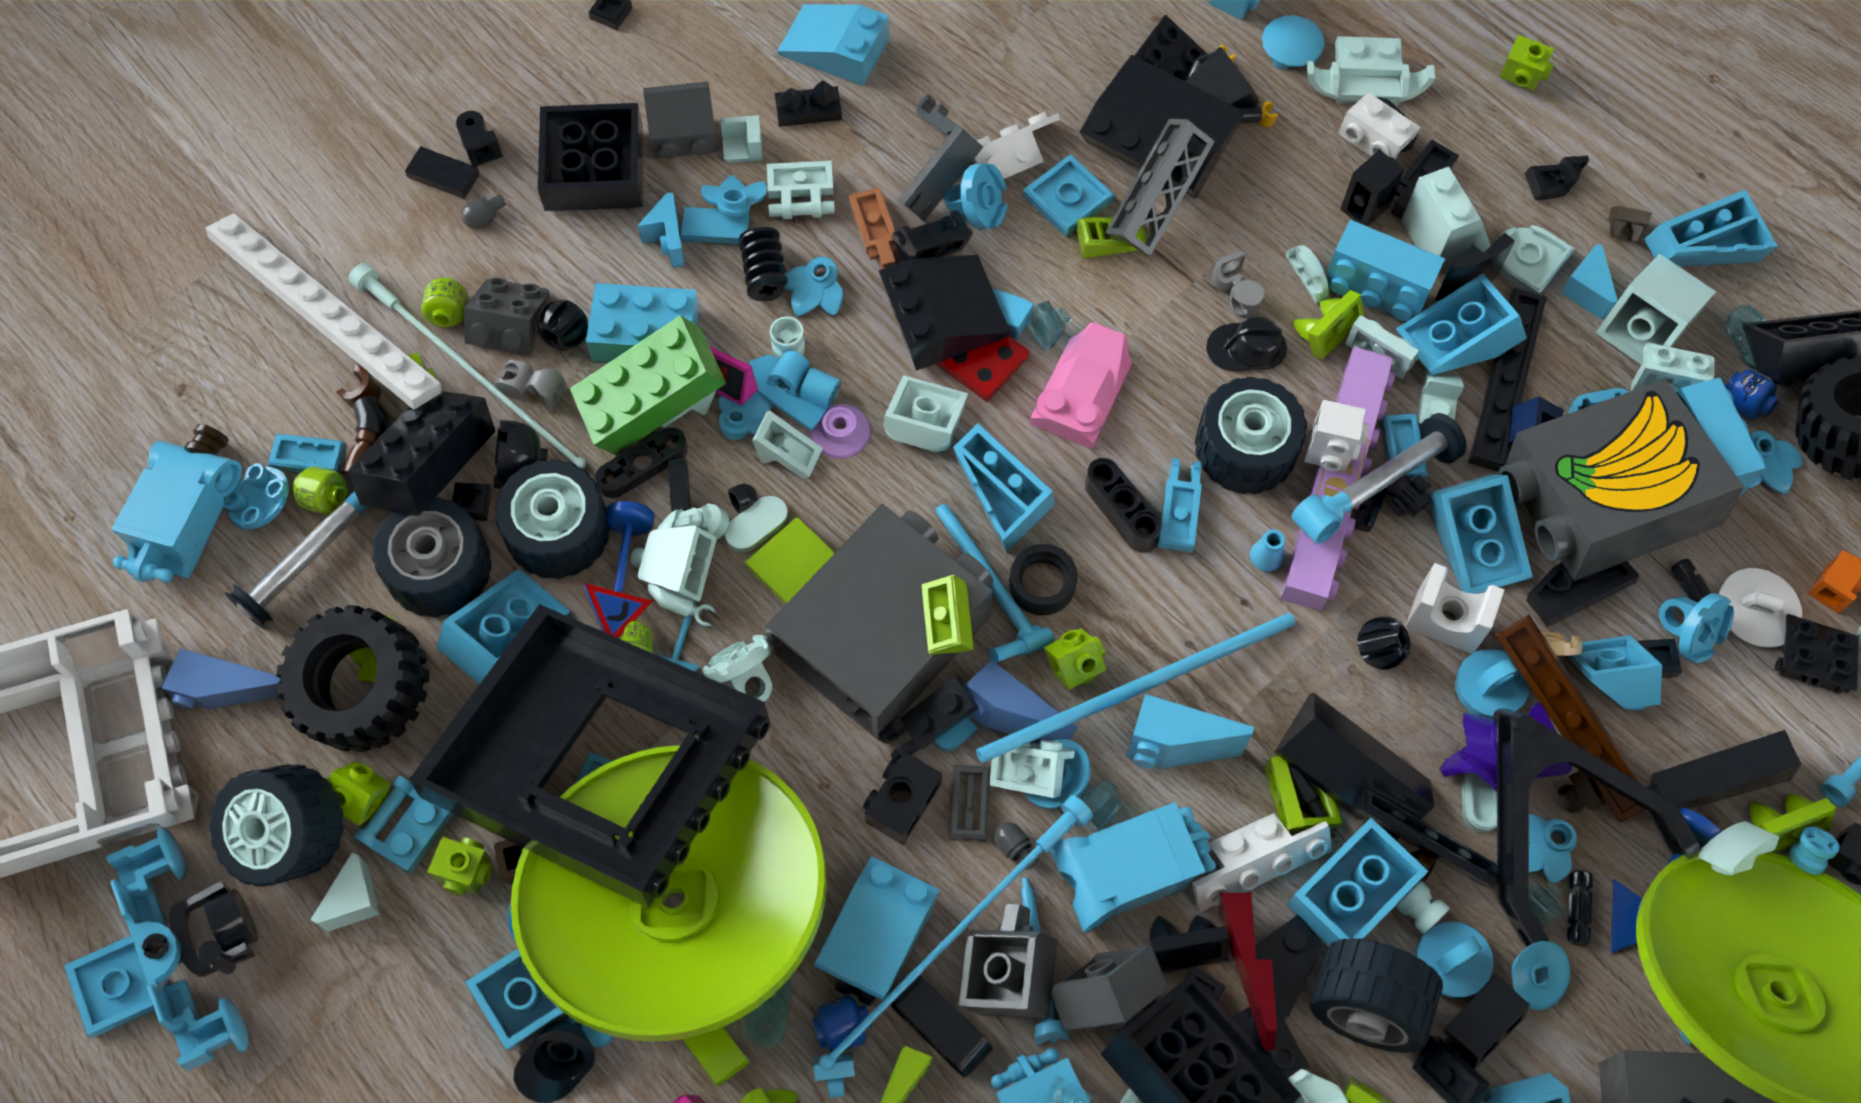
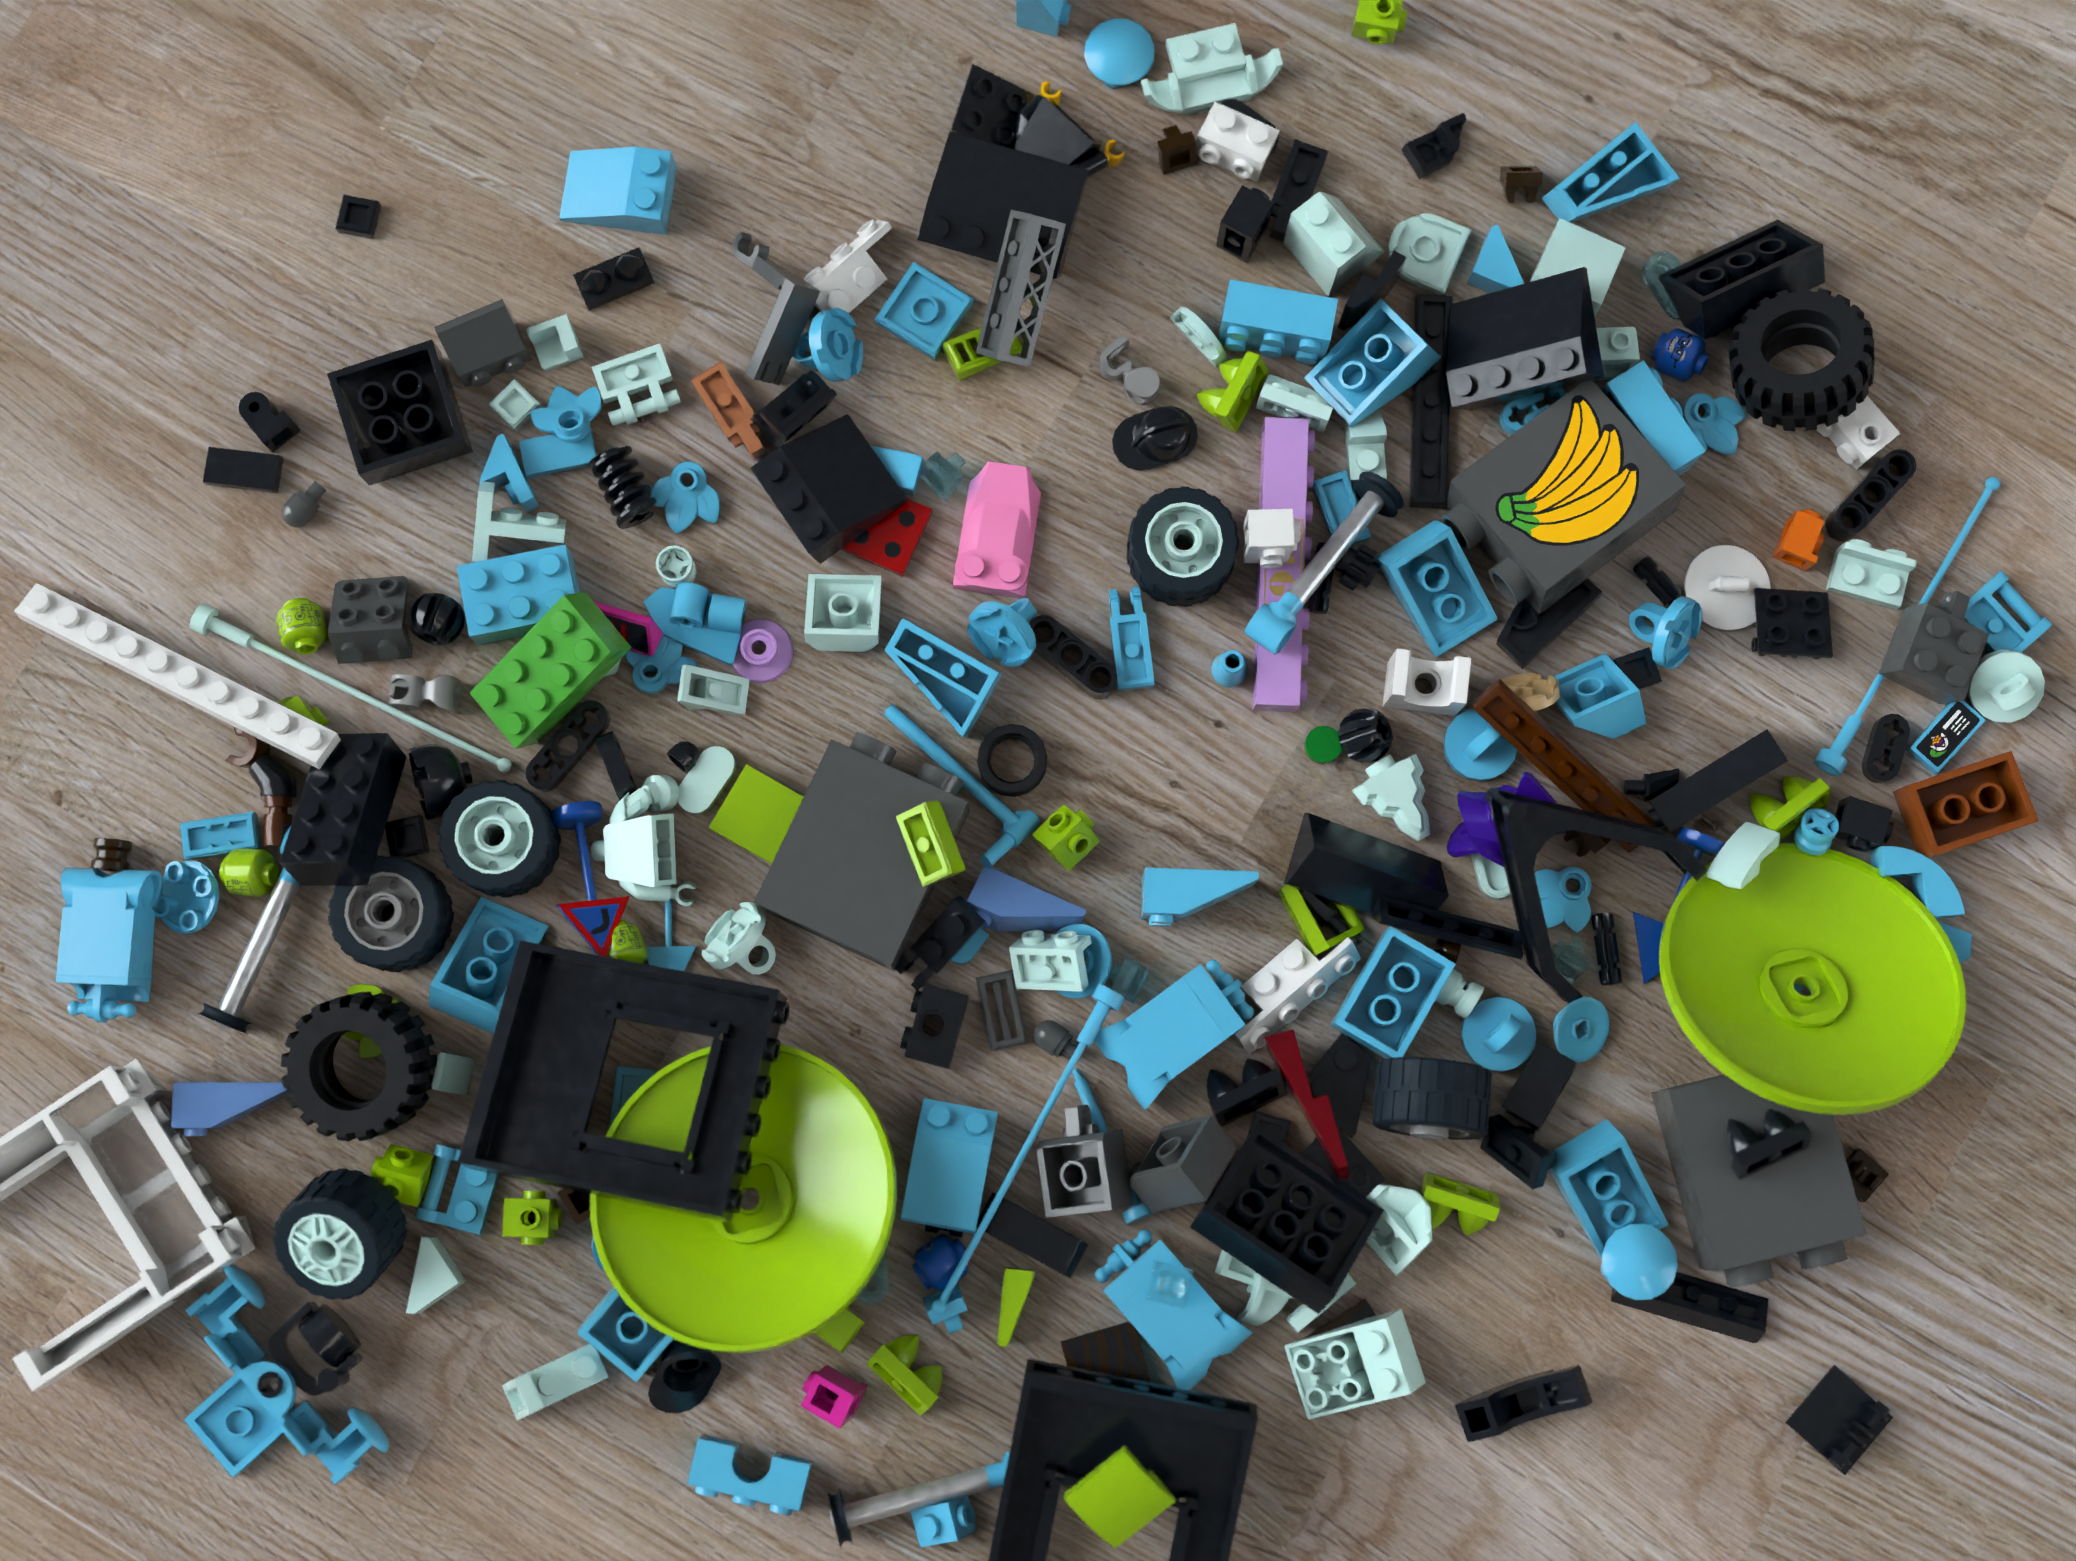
camera: 15 degrees left, 15 degrees up
(427, 1030) = (554, 1381): none -> light aqua bracket
(434, 714) = (452, 1073): none -> light aqua slope
(653, 263) = (510, 523): none -> light aqua bracket
(689, 180) = (514, 405): none -> light aqua tile
(1065, 463) = (1004, 631): none -> medium azure tile
(1134, 688) = (1134, 852): medium azure piece -> none
(1324, 123) = (1176, 150): none -> dark brown tile
(1340, 645) = (1322, 745): none -> green tile
(1401, 704) = (1397, 793): none -> light aqua rock
(1531, 414) = (1462, 446): dark blue panel -> none
(1608, 340) = (1522, 341): none -> black slope
(1652, 763) = (1652, 784): none -> black bar

